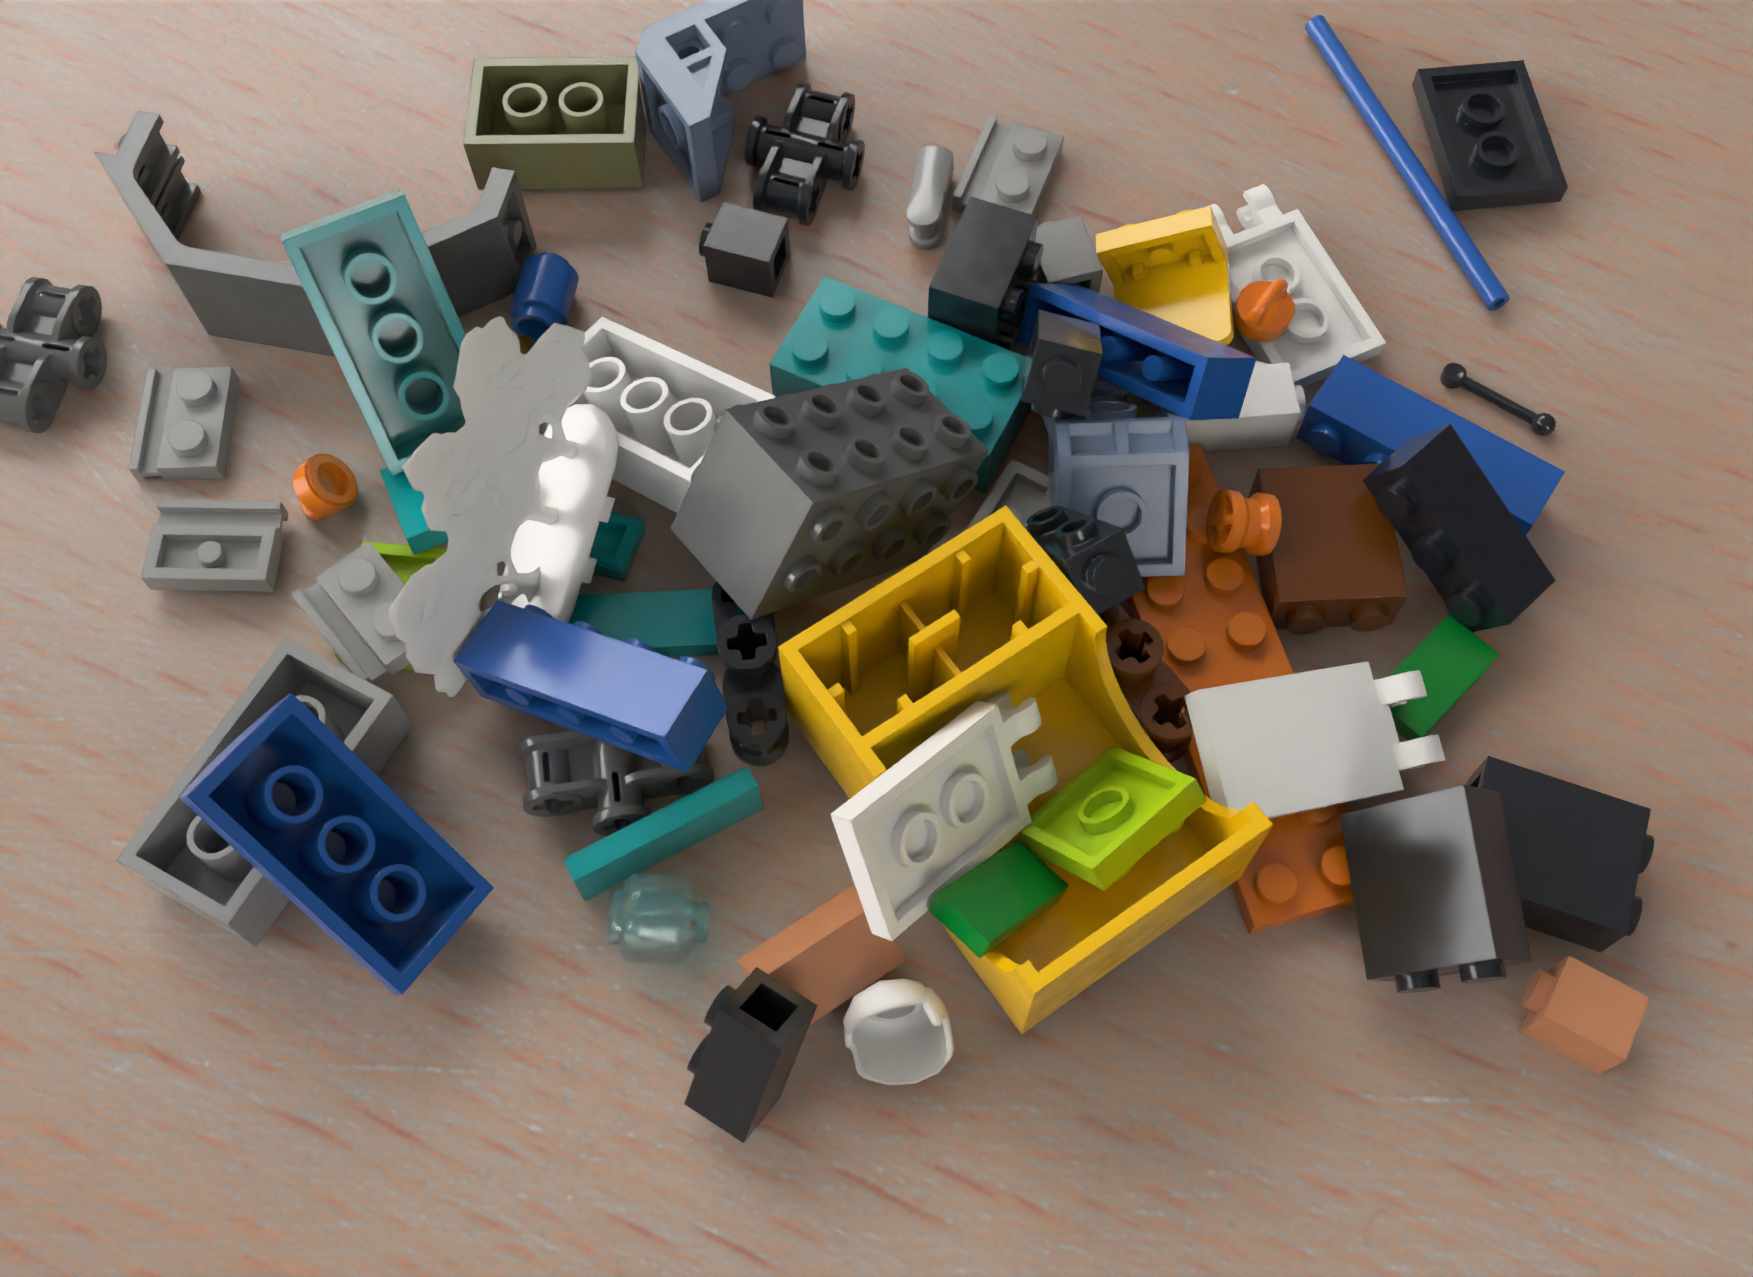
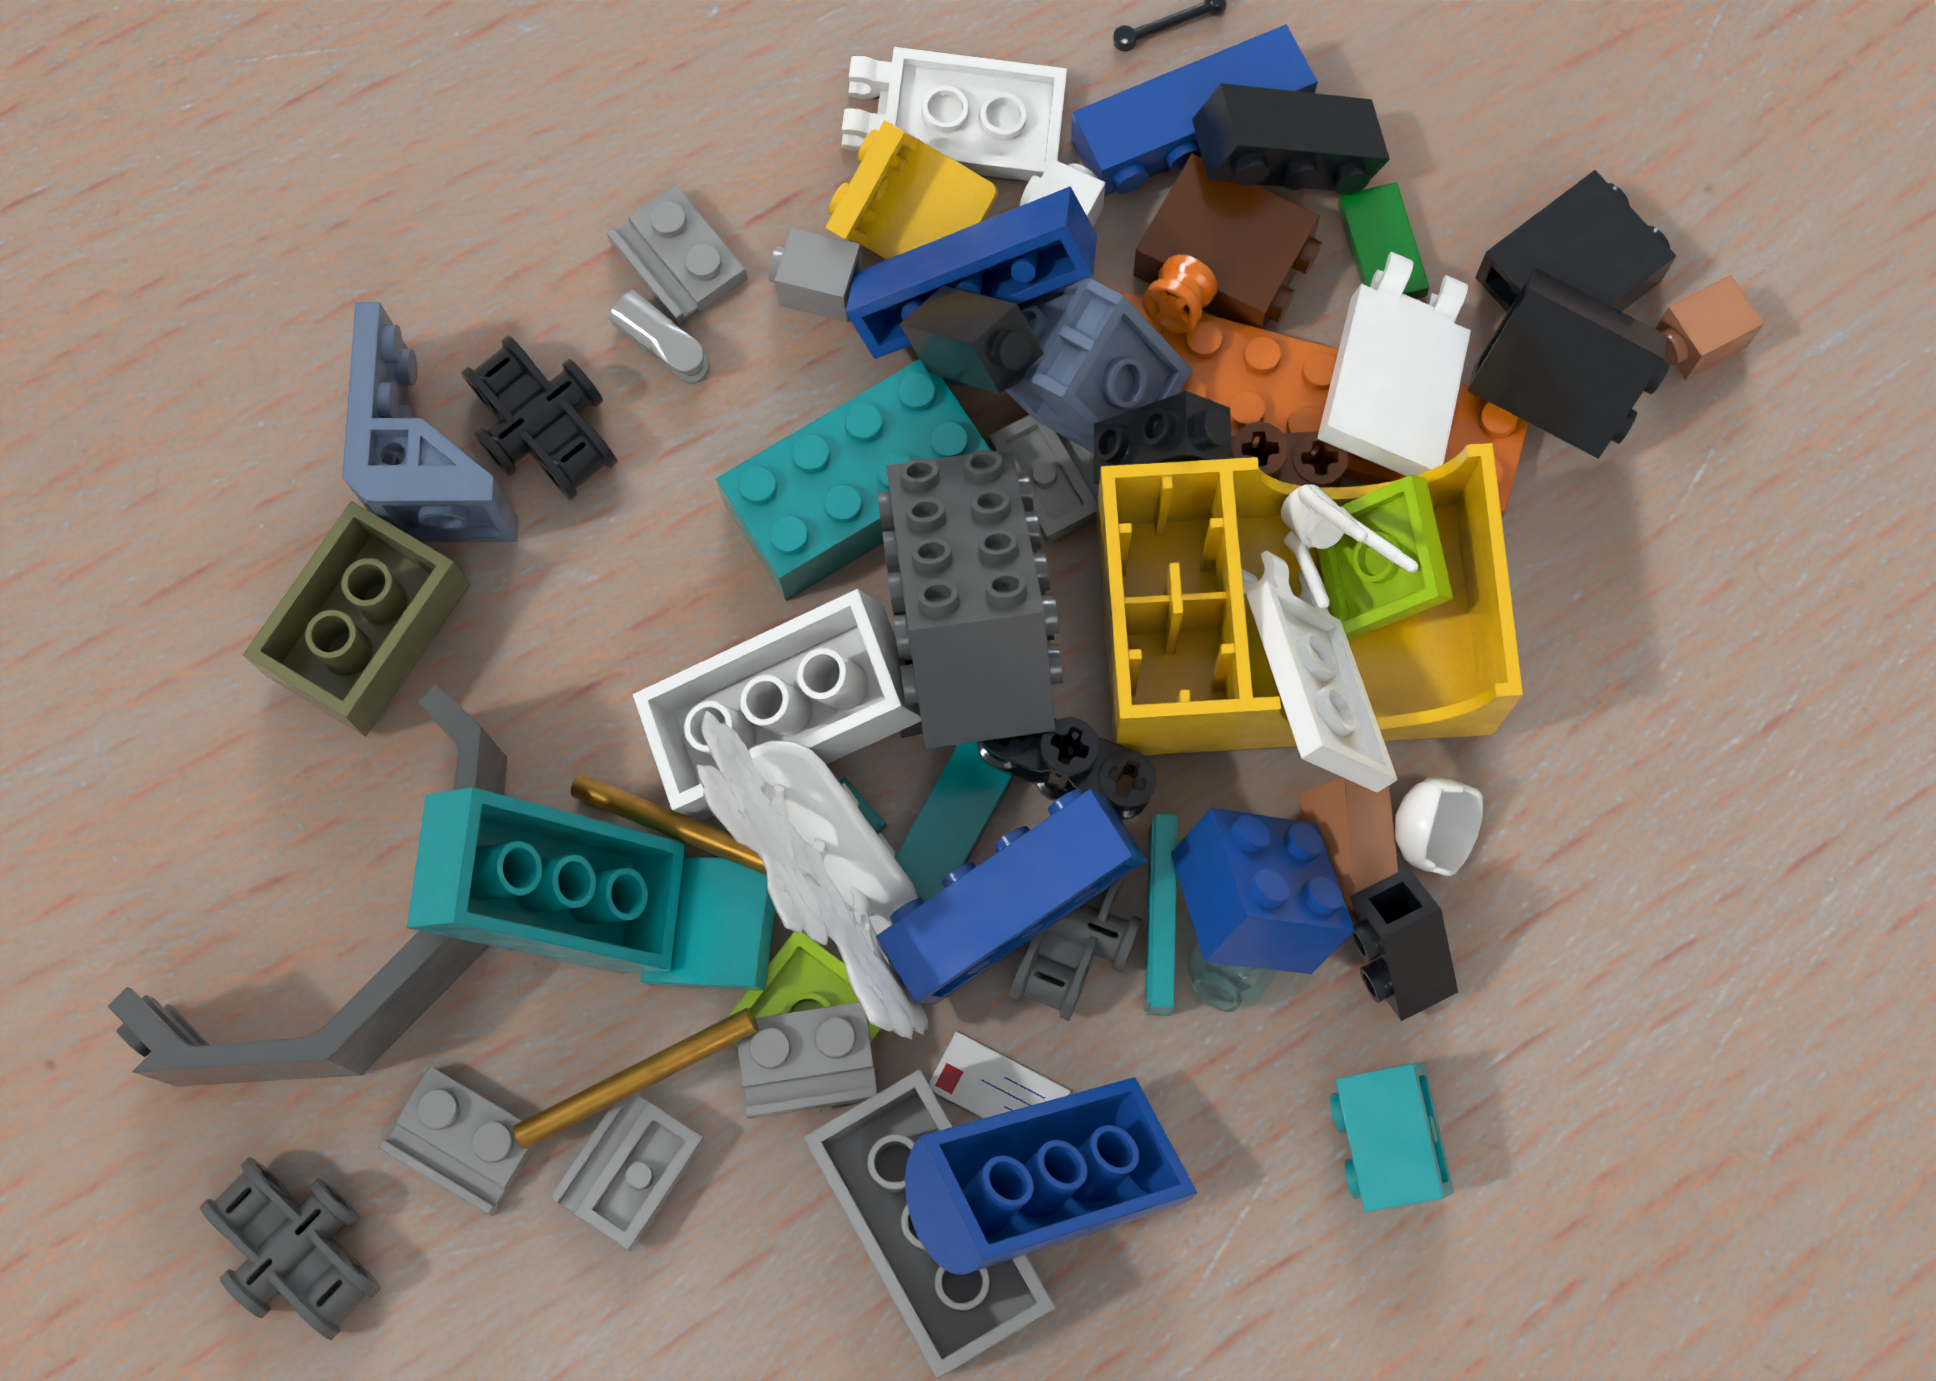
camera: 55 degrees left, 10 degrees up
(285, 499) = (635, 1078): none -> pearl gold bar
(324, 486) = (627, 1037): orange tile -> none
(441, 784) = (988, 1081): none -> white sticker
(543, 294) = (546, 738): blue brick -> none
(559, 1158) = (1391, 1137): none -> teal brick
(719, 891) = (1261, 891): none -> blue brick
(746, 249) = (615, 530): black brick -> none
(986, 272) = (809, 344): black brick -> none
(997, 898) = (1398, 682): green tile -> none
(1098, 738) = (1320, 524): none -> white plant
(1263, 310) = (982, 142): orange tile -> none

